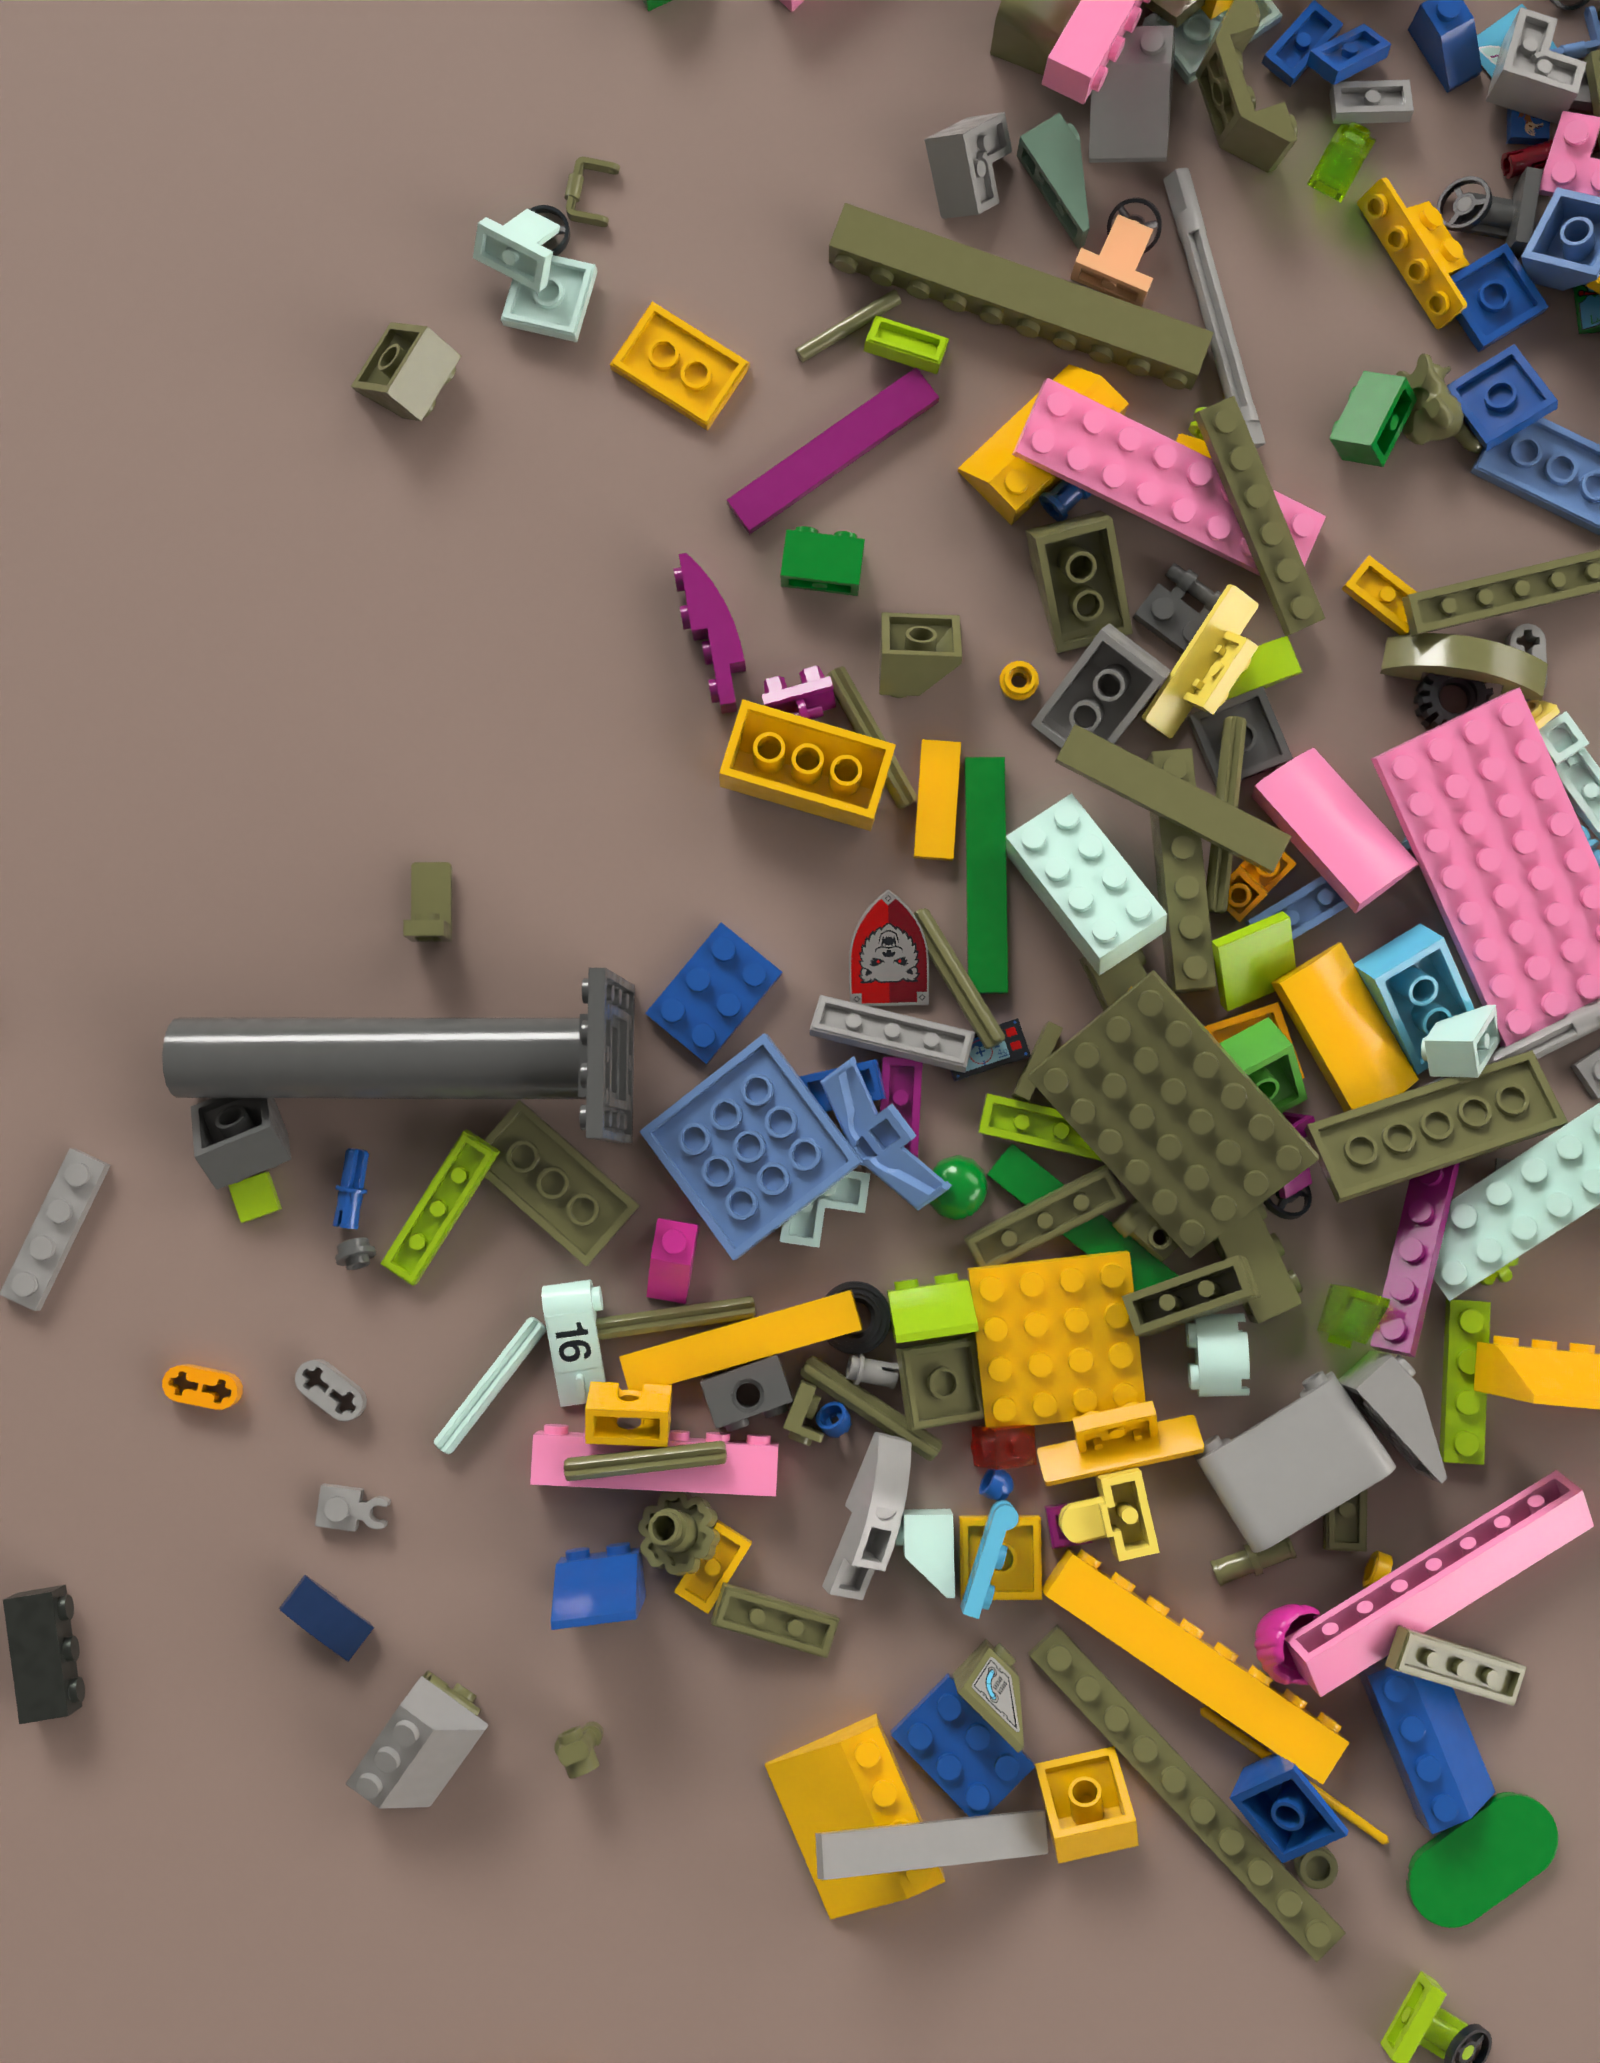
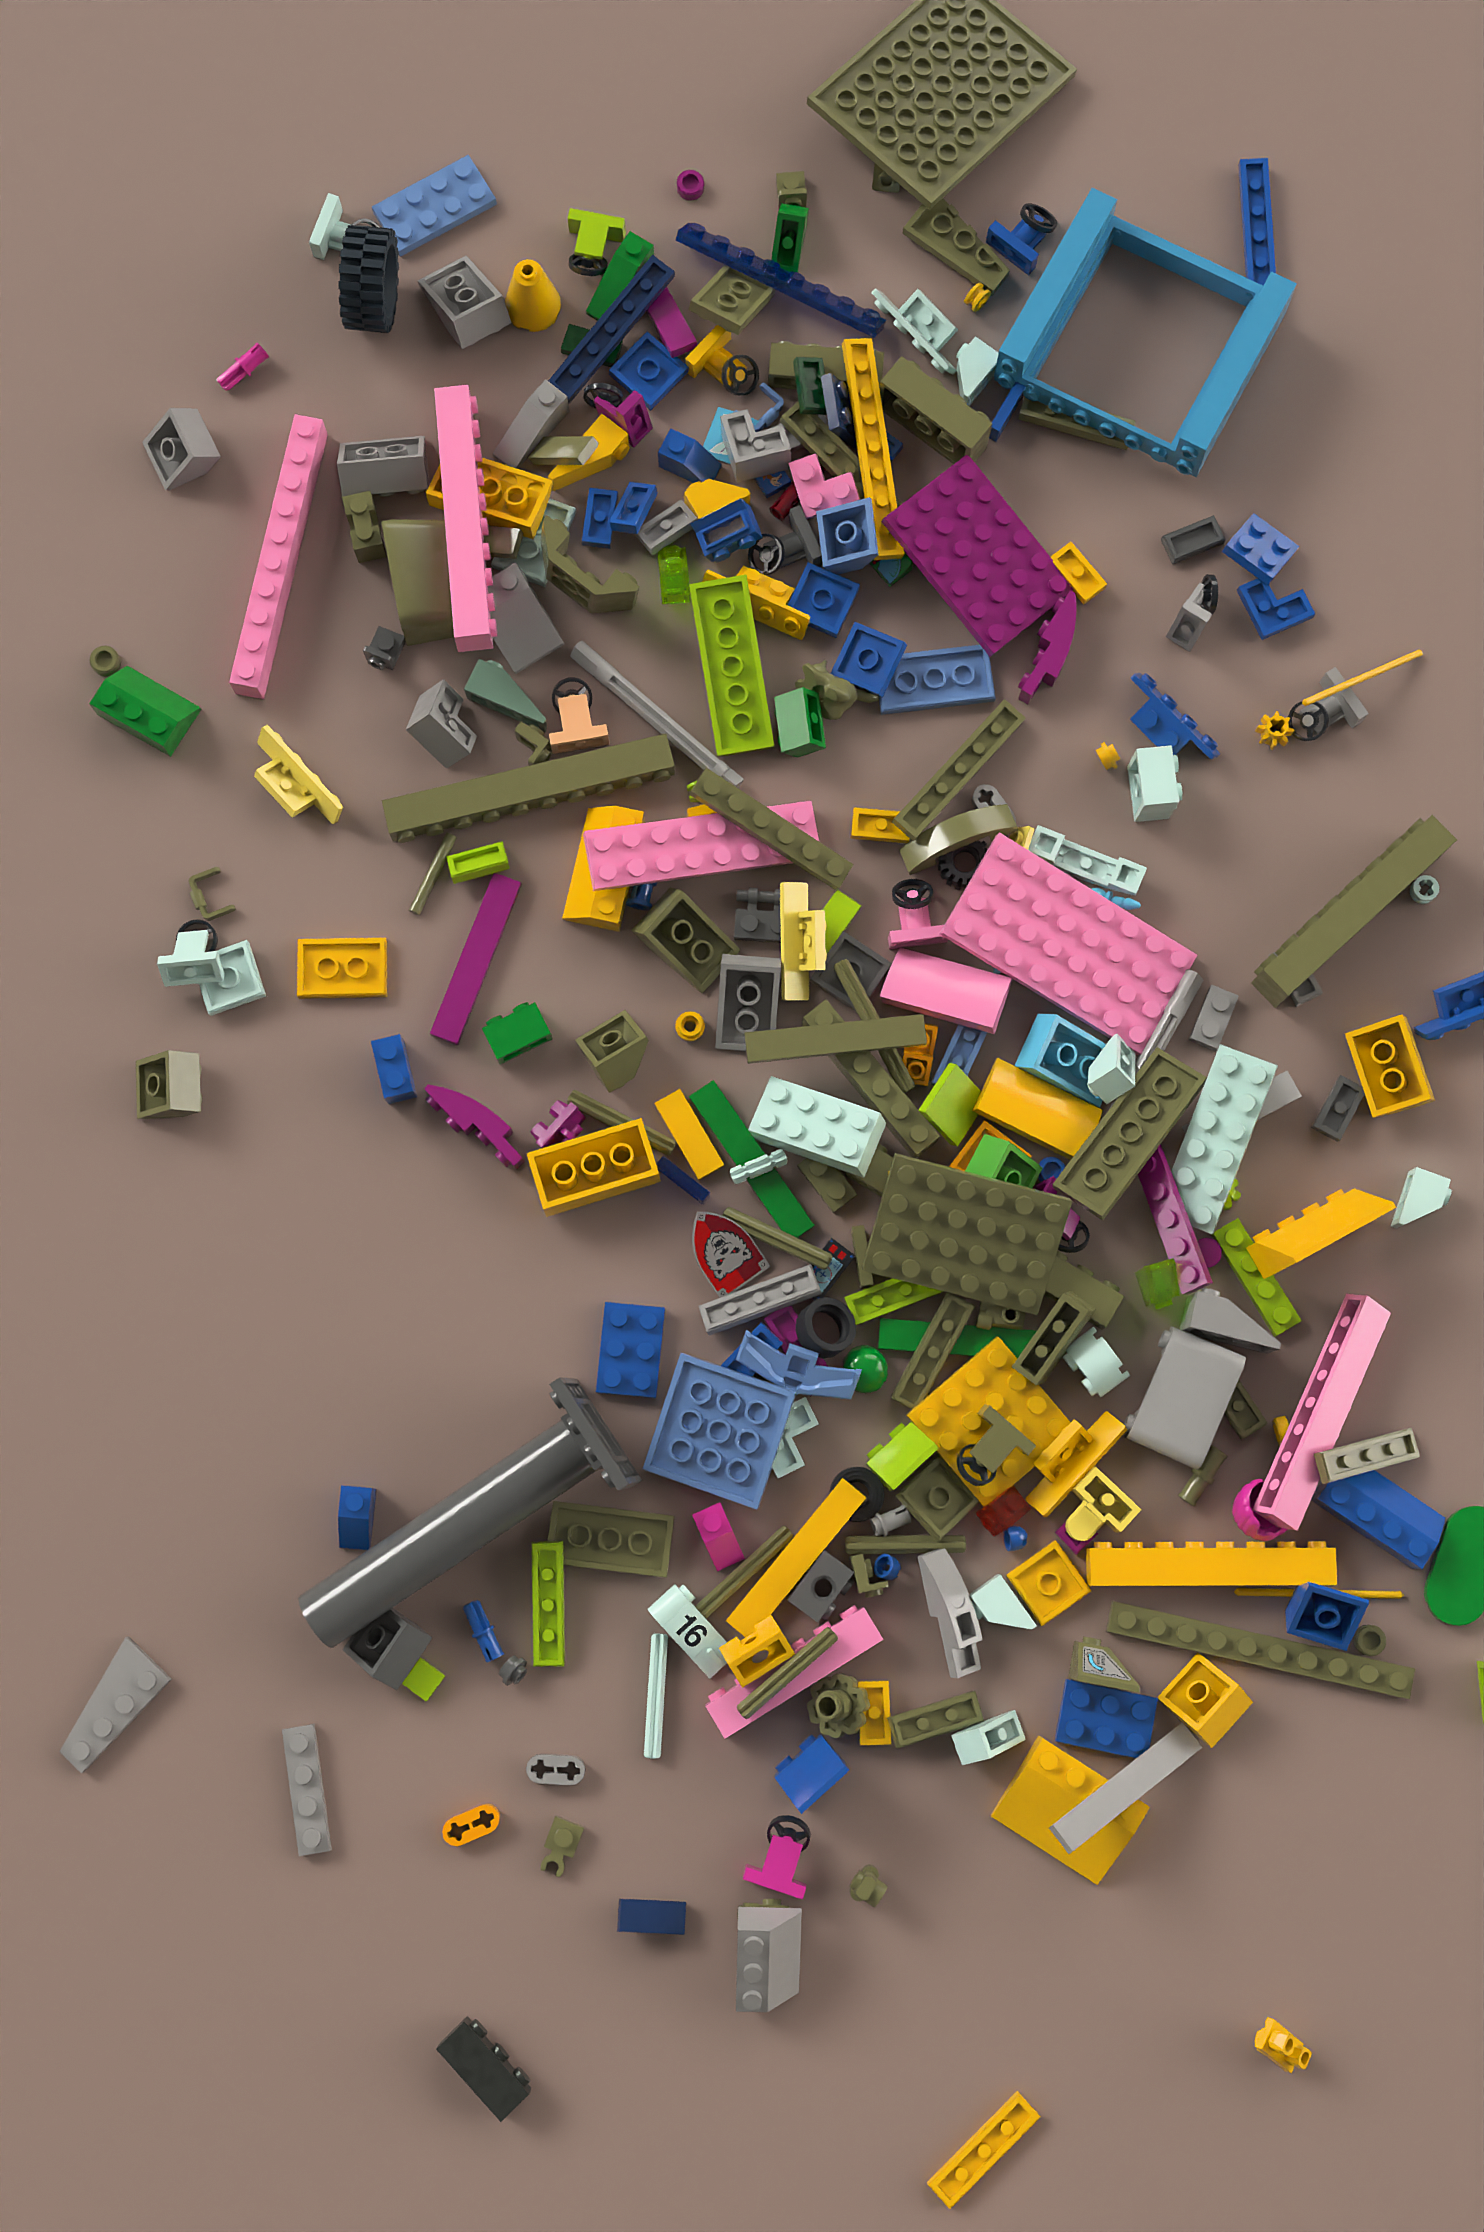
camera: 40 degrees left, 5 degrees down
(286, 1471) = (562, 1840): none -> olive plate
(298, 973) = (356, 1517): none -> blue slope
(344, 1507) = (615, 1839): light grey plate -> none
(430, 903) = (411, 1413): olive bracket -> none
(504, 1655) = (781, 1858): none -> dark pink piece
(661, 512) = (394, 1069): none -> blue brick
(761, 120) = (292, 781): none -> light yellow bracket
(818, 1681) = (988, 1738): none -> light aqua slope
(896, 845) = (683, 1180): none -> clear blue tile
(961, 39) = (384, 649): none -> dark grey bracket
(970, 1112) = (840, 1314): none -> black tyre
(989, 1556) = (1040, 1586): medium azure plate -> none
(990, 885) = (758, 1166): none -> light aqua axle
(1039, 1371) = (992, 1447): none -> olive piece
(1054, 956) = (828, 1183): none -> olive plate
(1060, 247) = (534, 739): none -> olive bracket
(1316, 1105) = (1051, 1167): none -> blue plate
(1340, 303) = (731, 665): none -> lime plate
(1353, 724) = (914, 917): none -> bright pink piece
(1435, 1318) = (1210, 1250): none -> magenta tile
(1438, 146) = (727, 530): none -> blue window
(1447, 107) = (712, 495): none -> yellow slope

